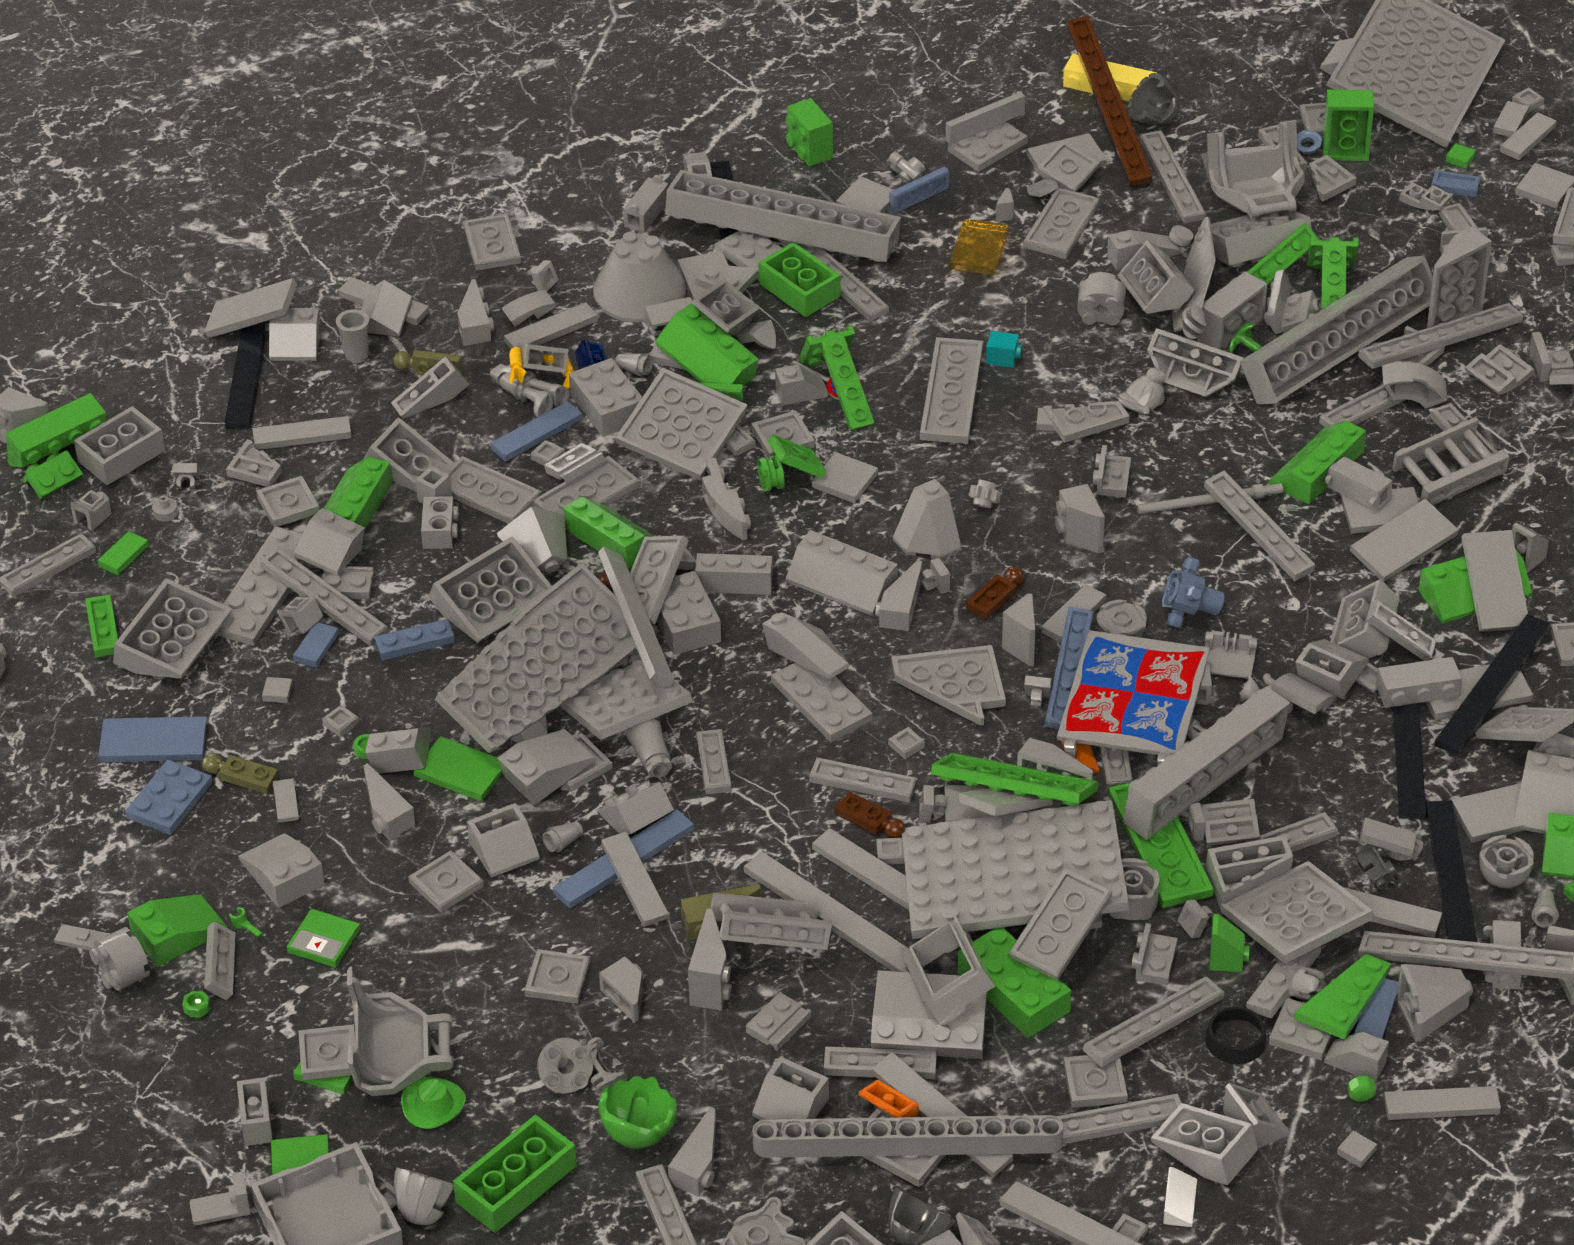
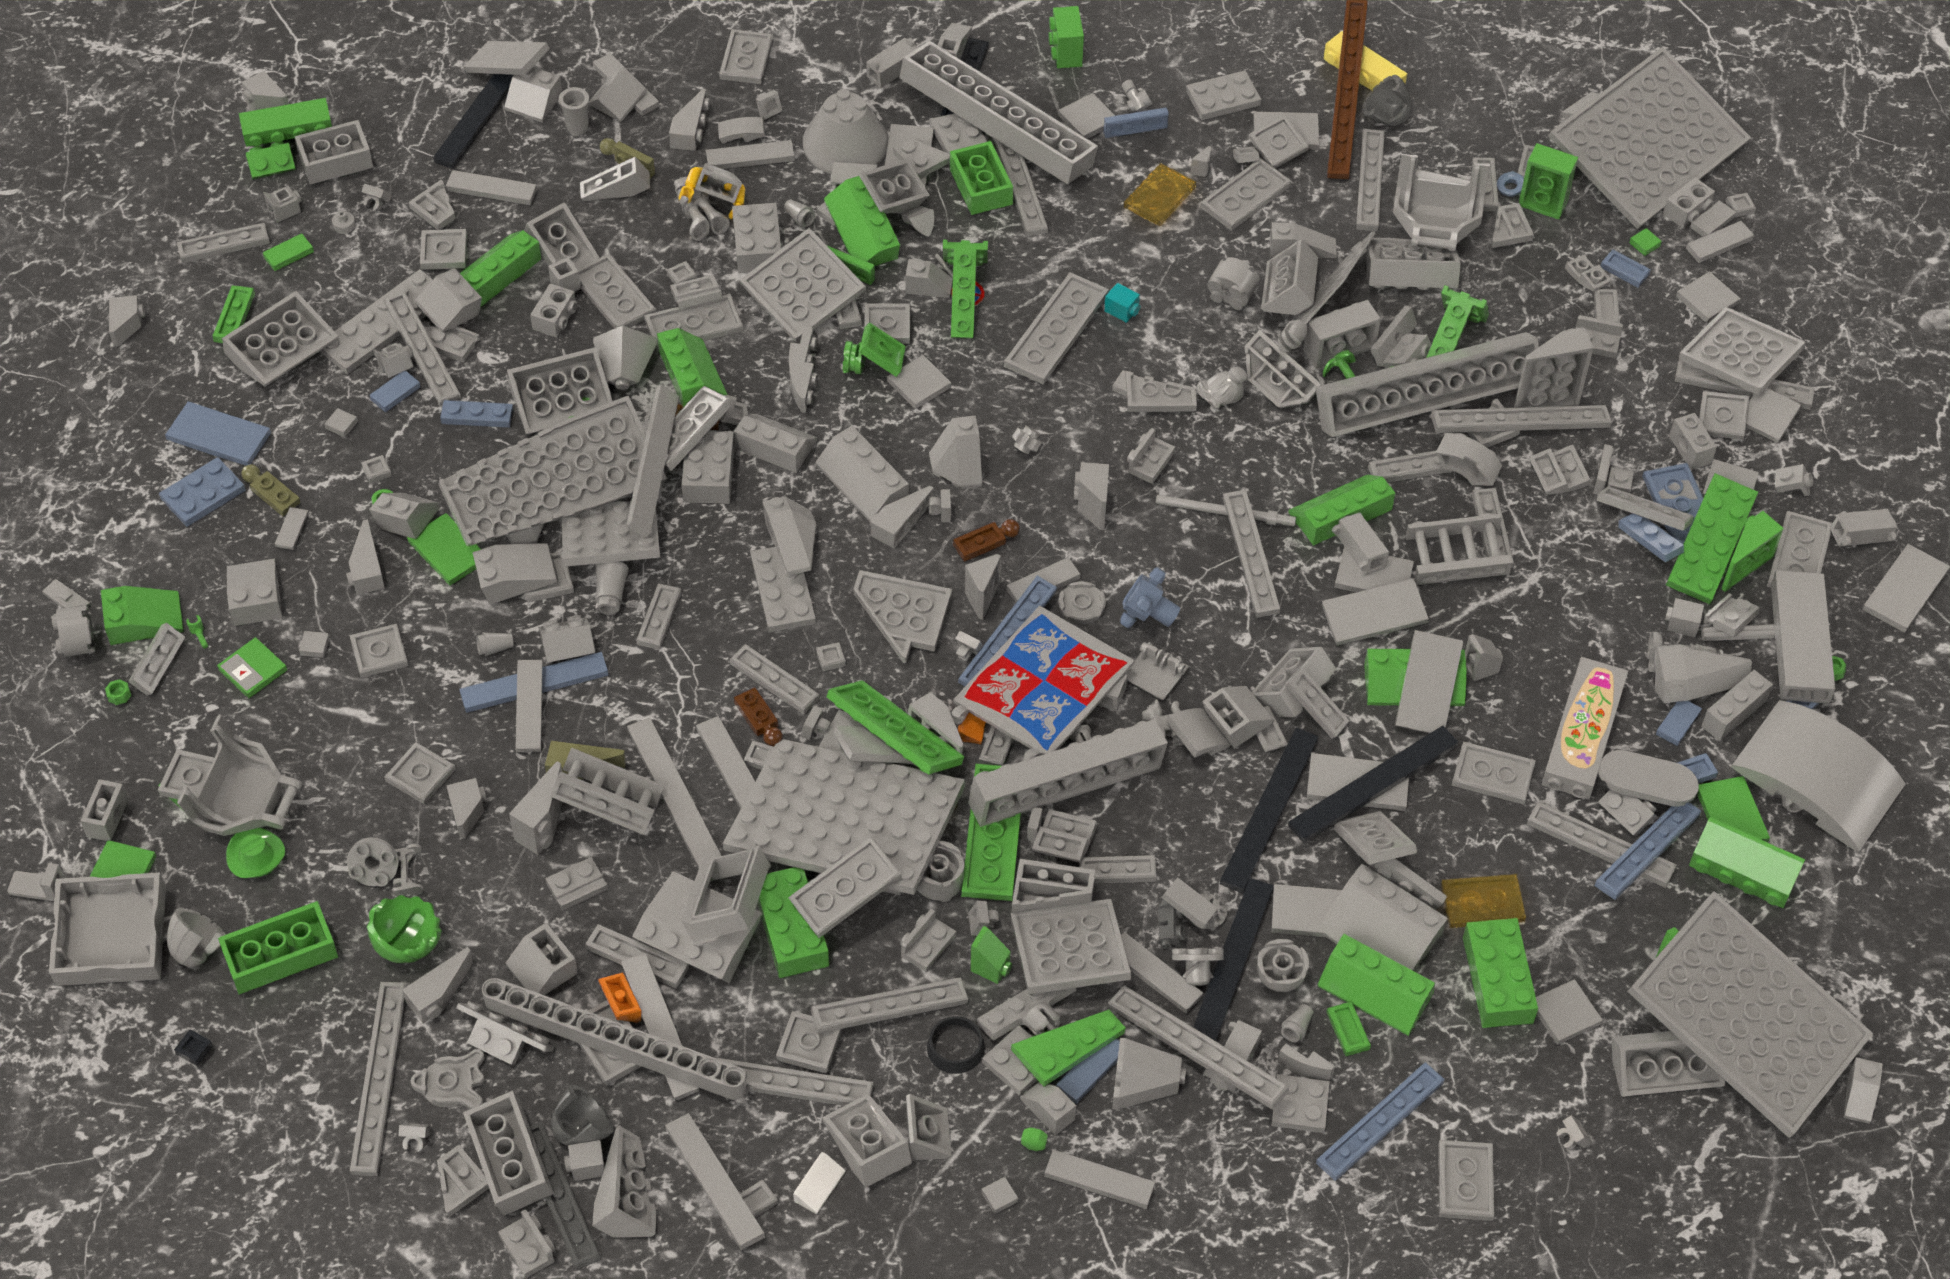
camera: 20 degrees right, 10 degrees up
(375, 896) = (314, 644): none -> light grey tile
(502, 840) = (439, 630): light grey slope -> none
(536, 431) = (684, 250): sand blue tile -> none
(589, 354) = (769, 192): clear blue slope -> none
(785, 1179) = (498, 1037): none -> light grey bracket
(985, 118) = (1227, 71): light grey tile -> none
(1181, 236) = (1343, 241): light grey tile -> none
(1284, 254) = (1415, 294): bright green tile -> none
(1418, 682) = (1304, 759): light grey brick -> none
(1424, 886) = (1197, 963): none -> light grey plate
(1482, 110) = (1689, 202): none -> light grey brick

